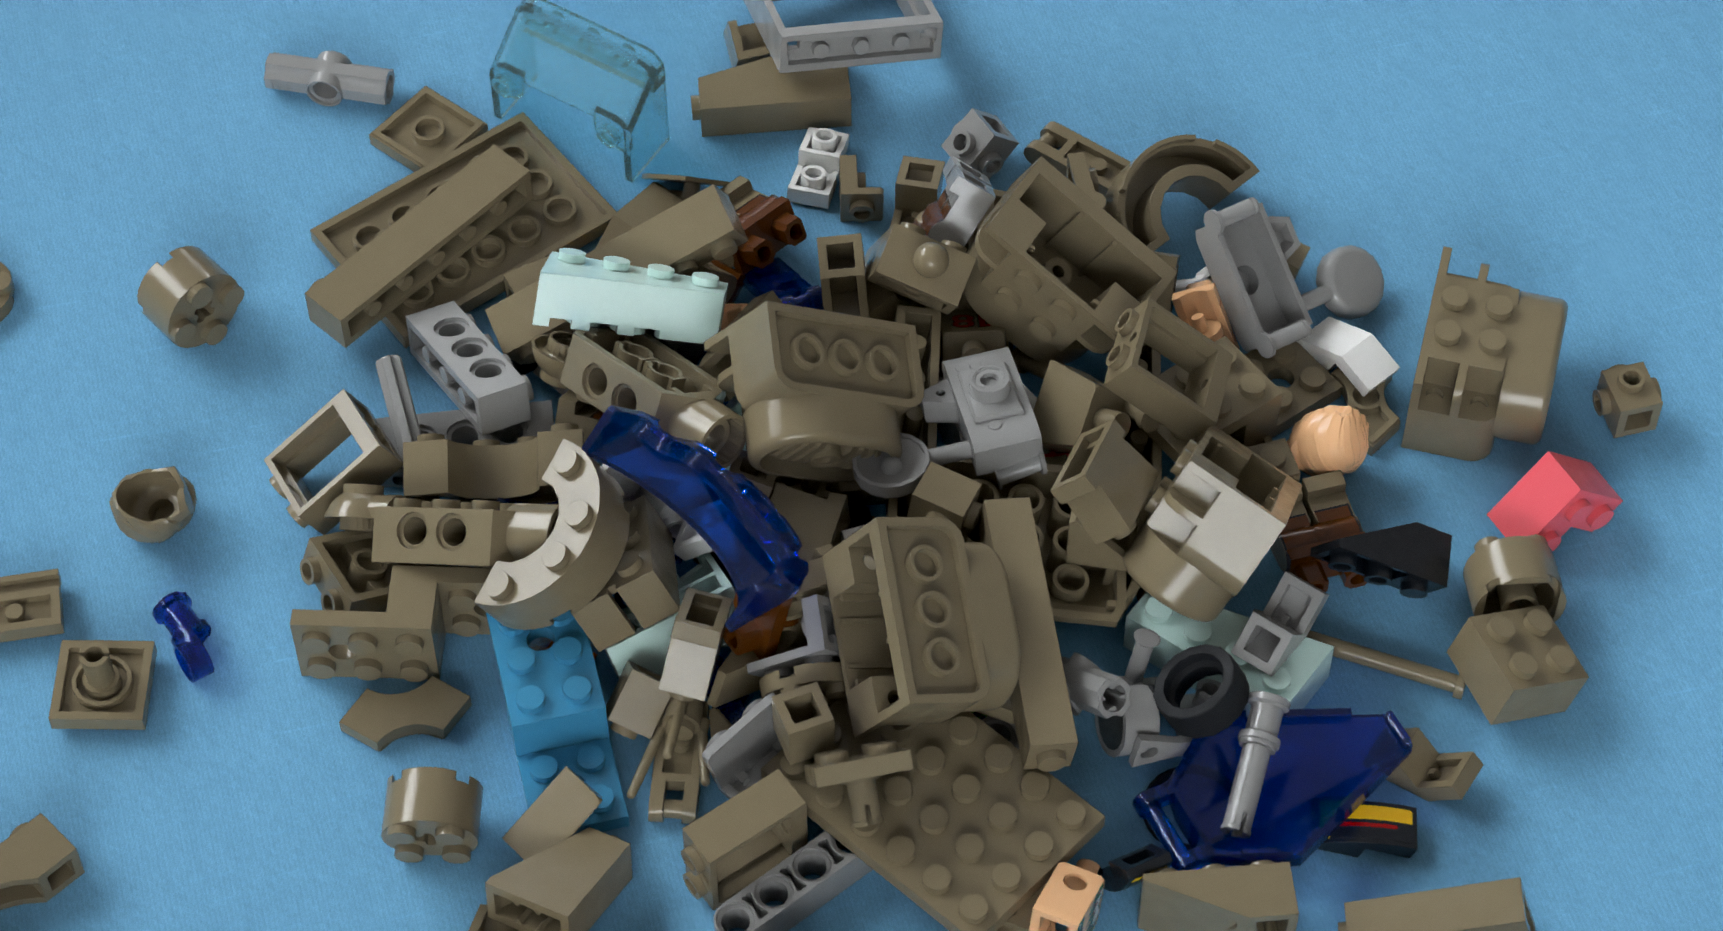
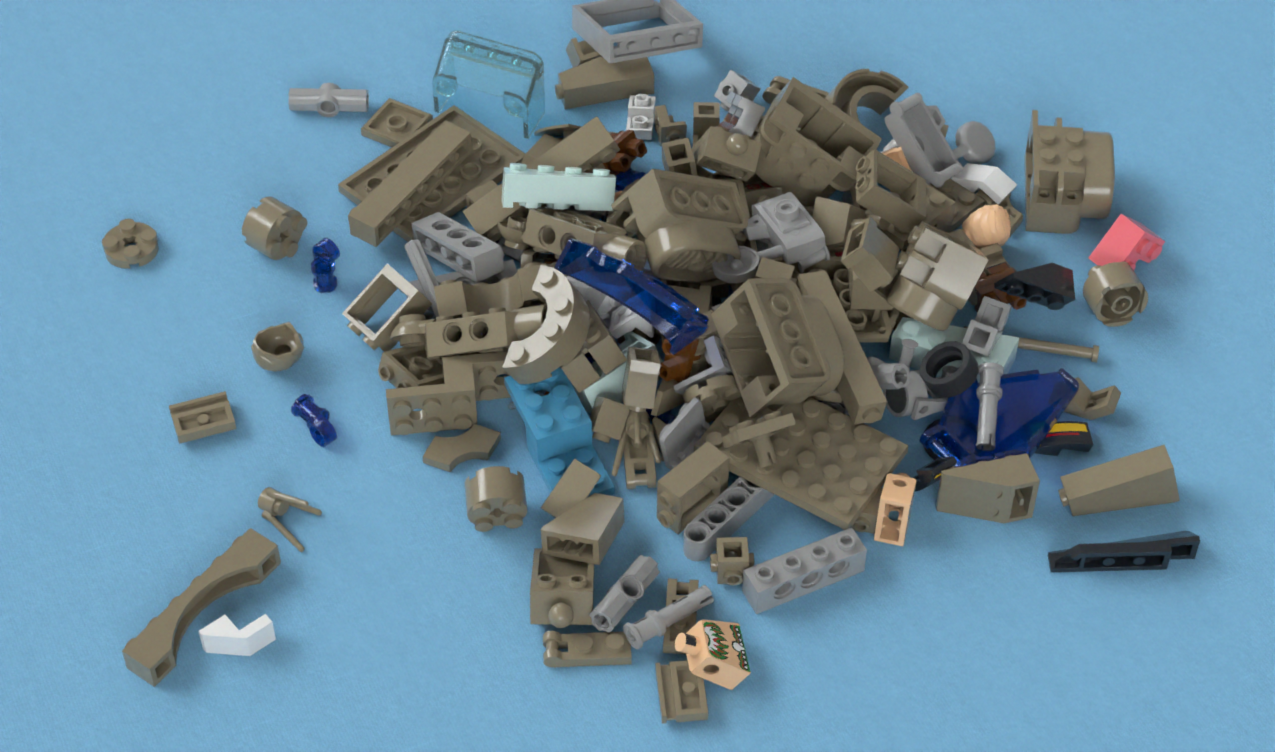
camera: 10 degrees left, 5 degrees down
(97, 773) = (277, 503): none -> dark tan plant
(103, 684) = (268, 453): dark tan plate -> none
(254, 373) = (323, 265): none -> clear blue connector
(803, 723) = (718, 411): dark tan brick -> none
(1517, 664) = (1127, 335): dark tan brick -> none
(1628, 399) = (1154, 187): dark tan brick -> none

